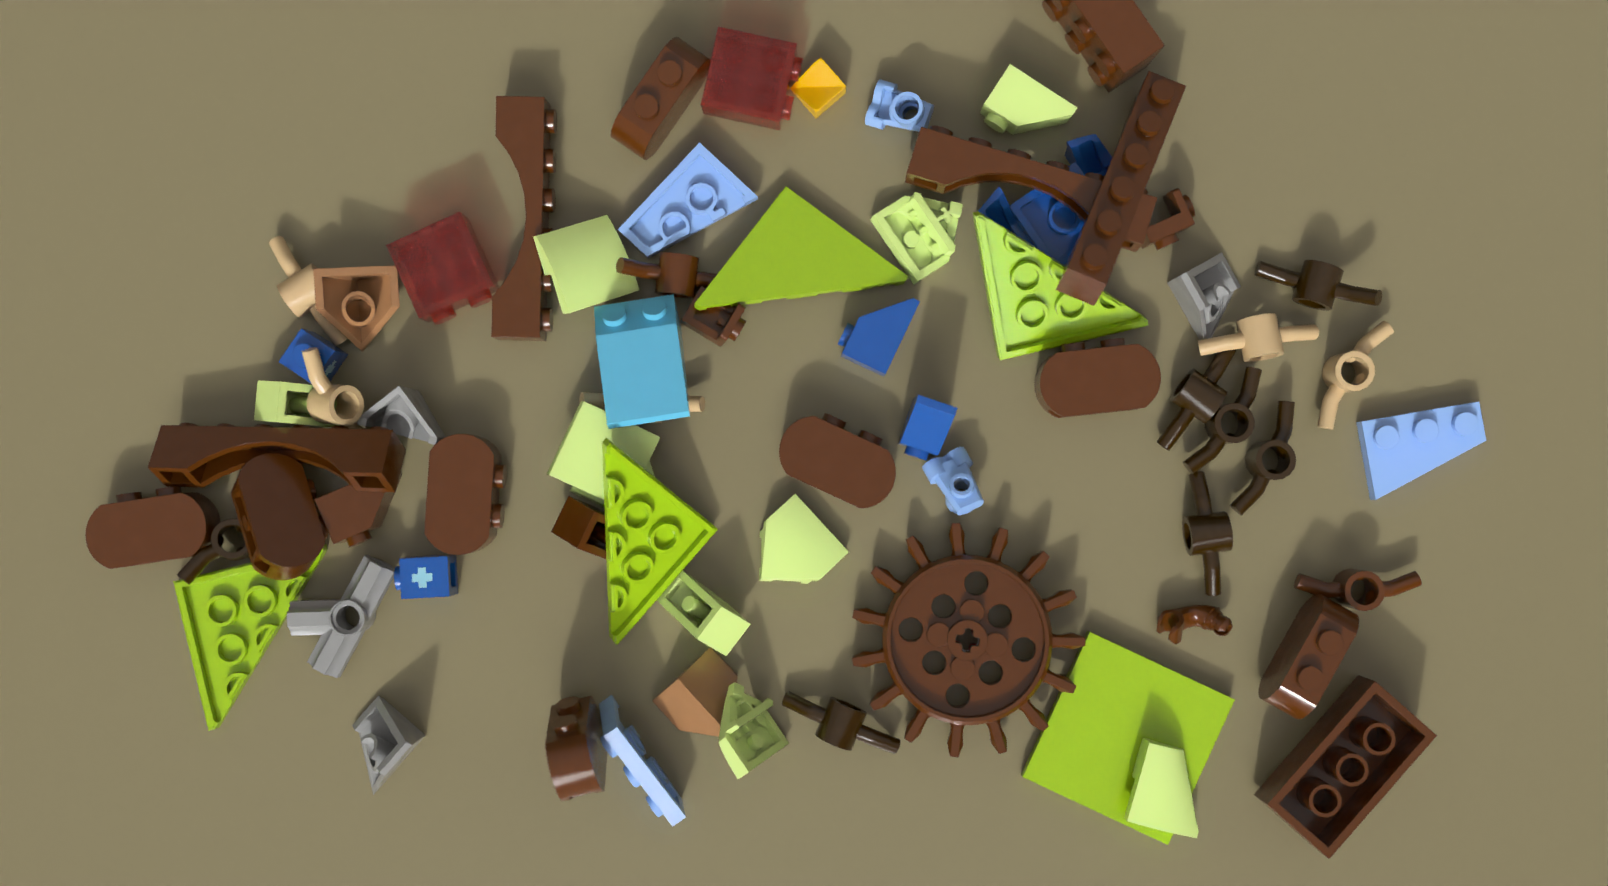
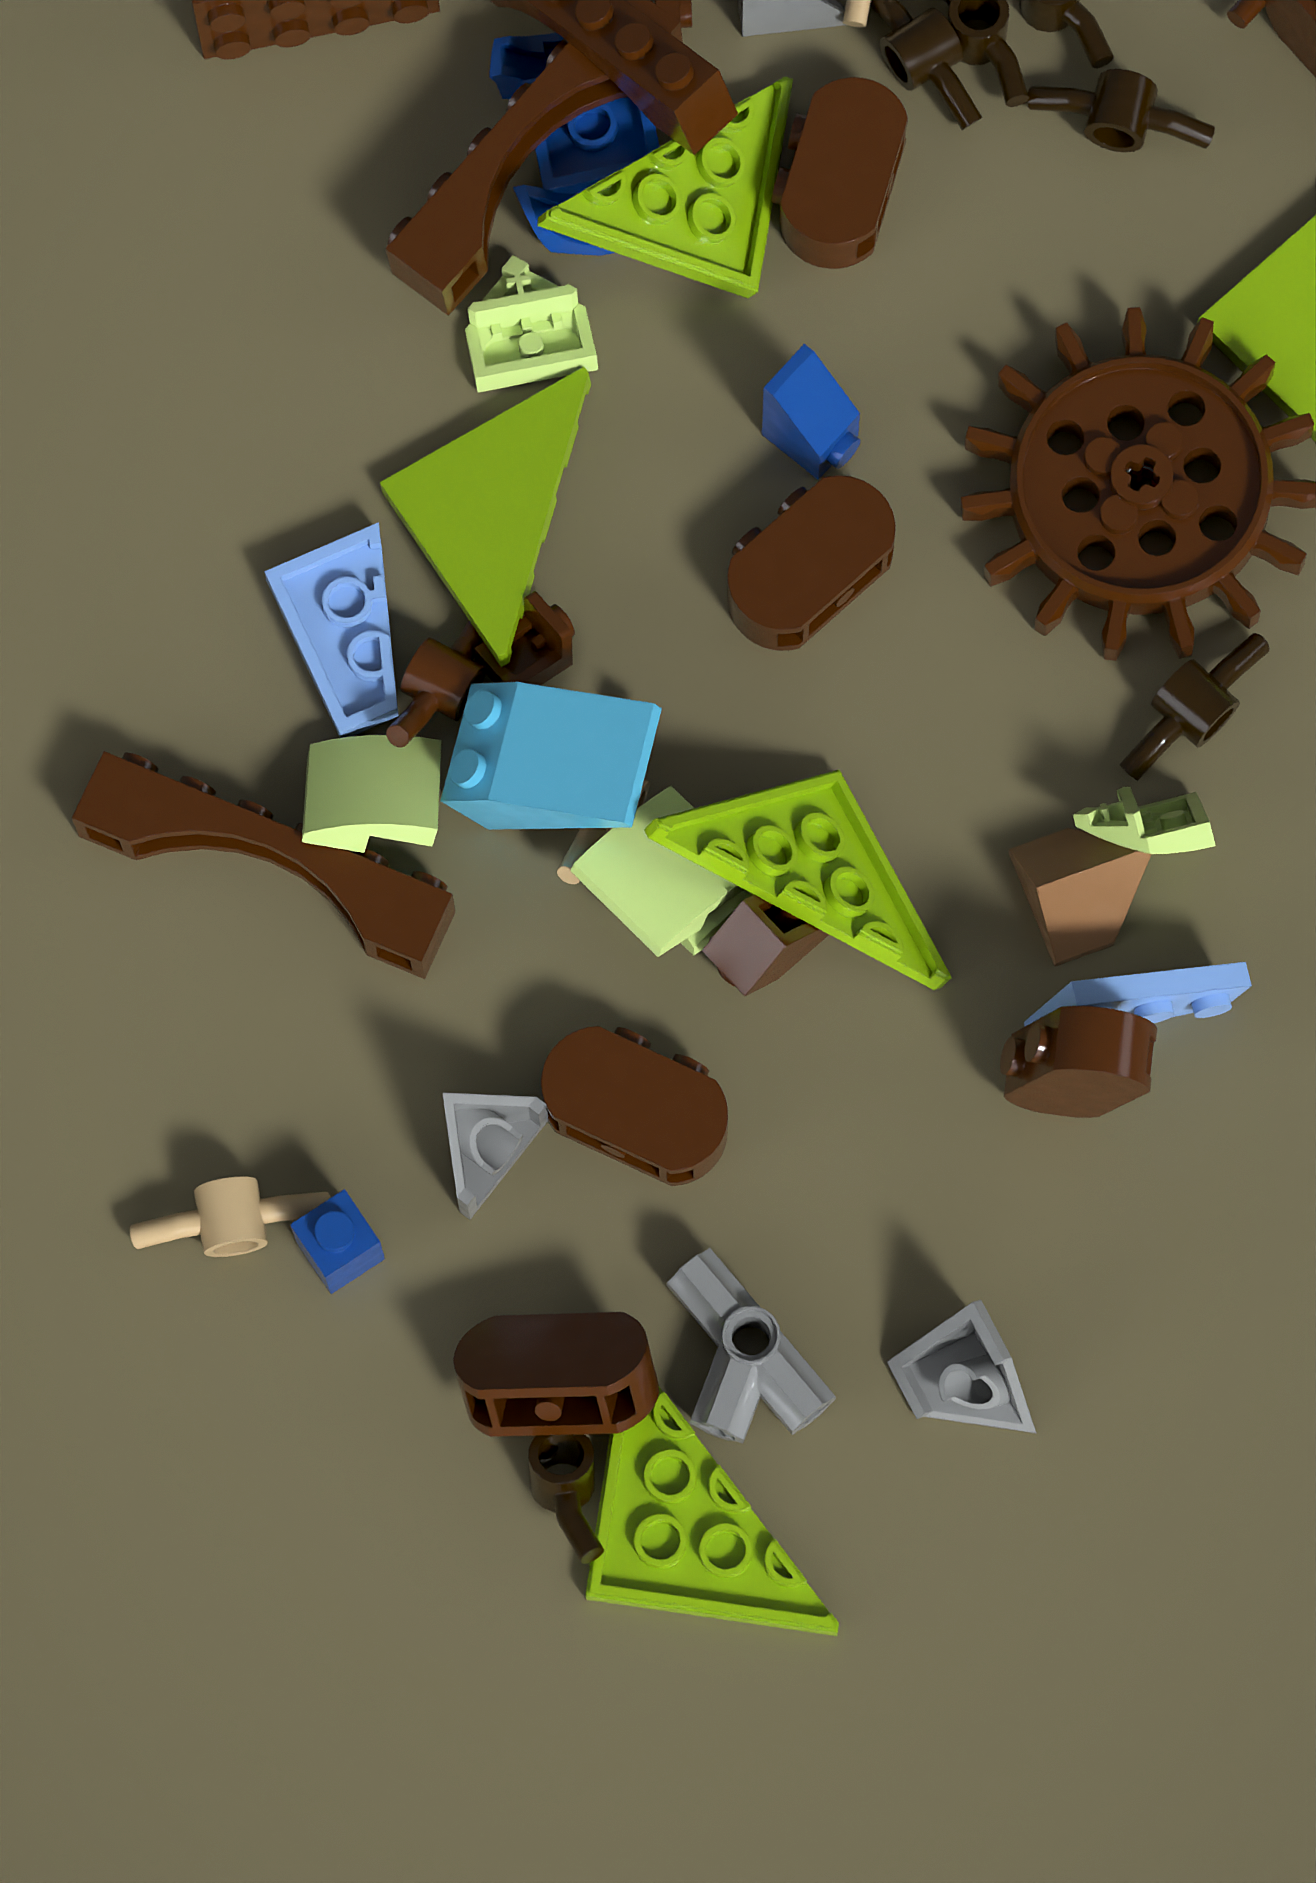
camera: 70 degrees left, 15 degrees down
(150, 528) = (492, 1587): reddish brown brick -> none
(202, 454) = (515, 1219): reddish brown arch -> none
(284, 403) = (398, 1289): yellowish green slope -> none
(323, 395) = (422, 1222): tan piece -> none
(353, 513) = (590, 1261): reddish brown slope -> none
(357, 299) = (281, 1134): medium nougat slope -> none
(427, 576) = (736, 1206): blue brick -> none
(444, 268) = (290, 997): clear red brick -> none
(660, 98) = (179, 595): reddish brown brick -> none
(703, 613) = (954, 830): yellowish green slope -> none
(751, 79) = (206, 464): clear red brick -> none
(797, 545) = (908, 667): yellowish green slope -> none
(818, 88) = (258, 384): yellow slope -> none
(877, 336) = (655, 438): blue slope -> none
(891, 105) = (325, 296): light blue plate -> none
(951, 474) = (907, 412): light blue plate -> none
(1024, 105) = (407, 120): yellowish green slope -> none
(1189, 616) = (1236, 165): reddish brown piece -> none

